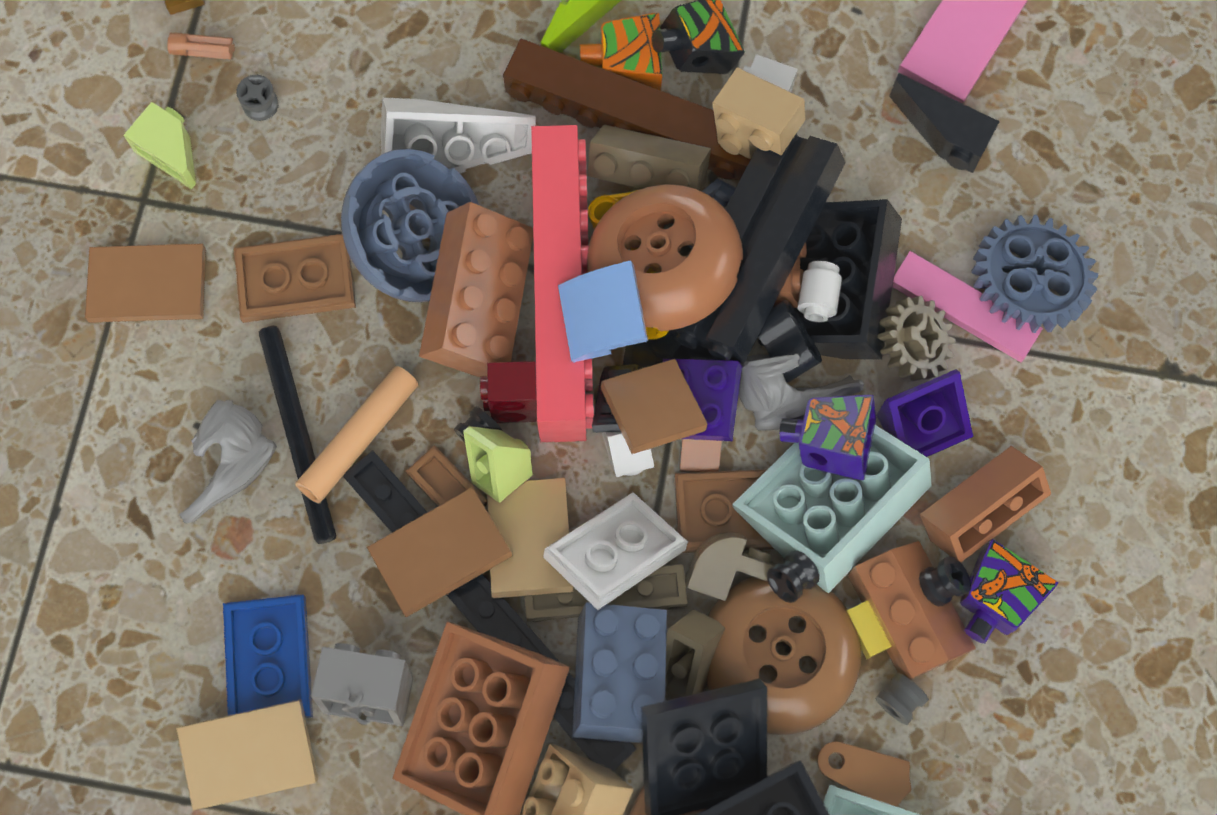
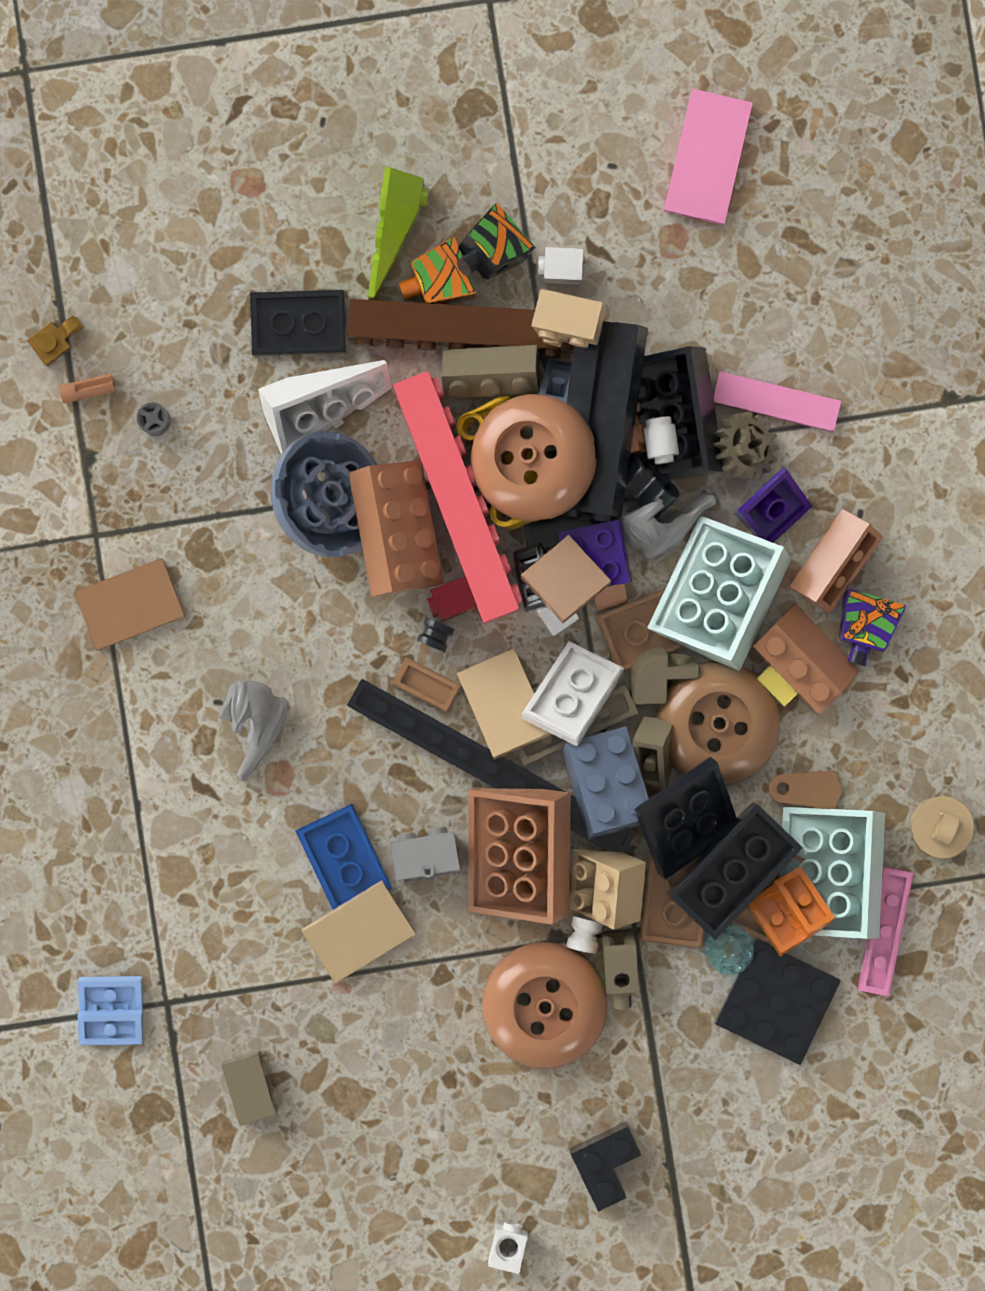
camera: 20 degrees left, 15 degrees up
(163, 141) = (96, 484): yellowish green slope -> none
(294, 278) = (244, 559): medium nougat tile -> none
(295, 427) = (296, 683): black axle -> none
(356, 434) = (346, 670): light nougat piece -> none
(439, 552) = (443, 740): medium nougat tile -> none
(455, 55) = (298, 322): none -> black tile
(496, 461) = (461, 656): yellowish green slope -> none
(602, 311) = (504, 524): light blue slope -> none
(793, 576) = (710, 671): black wheel -> none
(834, 434) = (707, 550): torso -> none
(902, 698) = (816, 728): dark grey wheel -> none
(945, 581) = (822, 632): black wheel -> none
(948, 126) = (721, 253): black slope -> none
(1034, 273) = (814, 331): sand blue gear -> none

